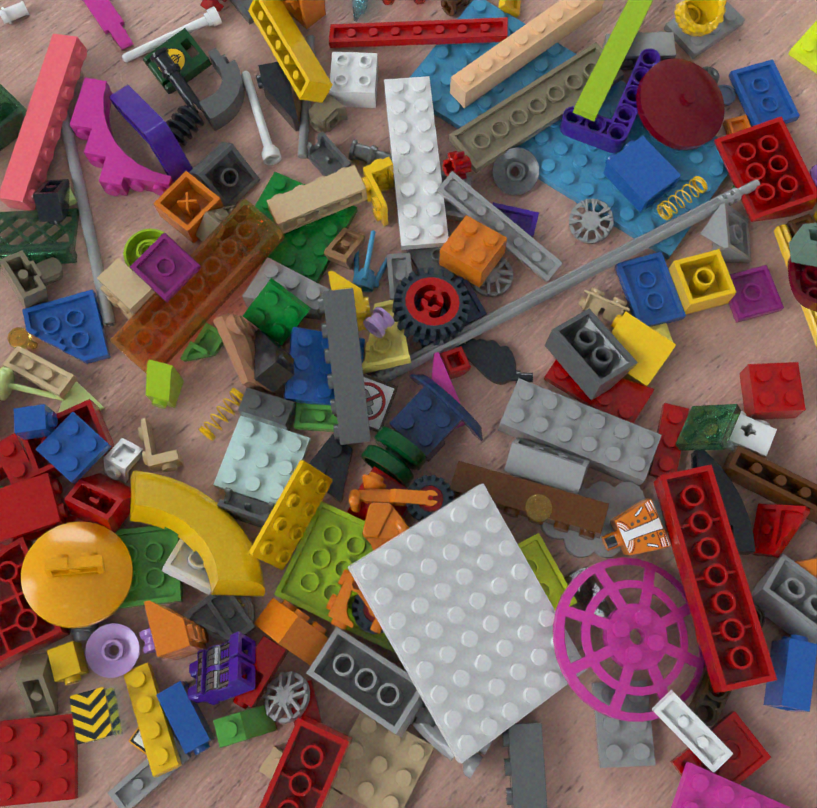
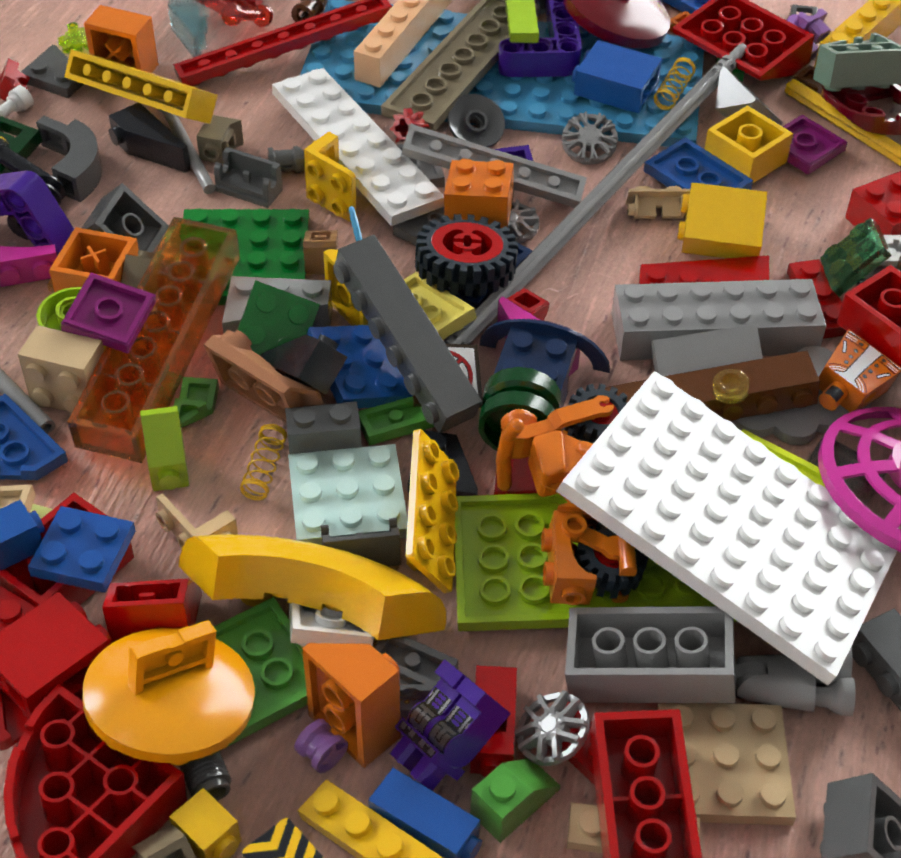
camera: 30 degrees left, 25 degrees down
(99, 655) = (266, 767): lavender dish -> none
(121, 460) = (150, 558): white bracket -> none
(270, 153) = (168, 195): white piece -> none
(290, 629) = (513, 638): orange brick -> none
(317, 199) = (266, 202): tan brick -> none
(354, 79) = (239, 96): white brick -> none
(378, 322) = (419, 283): lavender wheel -> none
(398, 267) = (401, 250): light grey plate -> none
(494, 361) = (572, 295): black animal -> none
(590, 353) = (678, 236): dark grey slope -> none

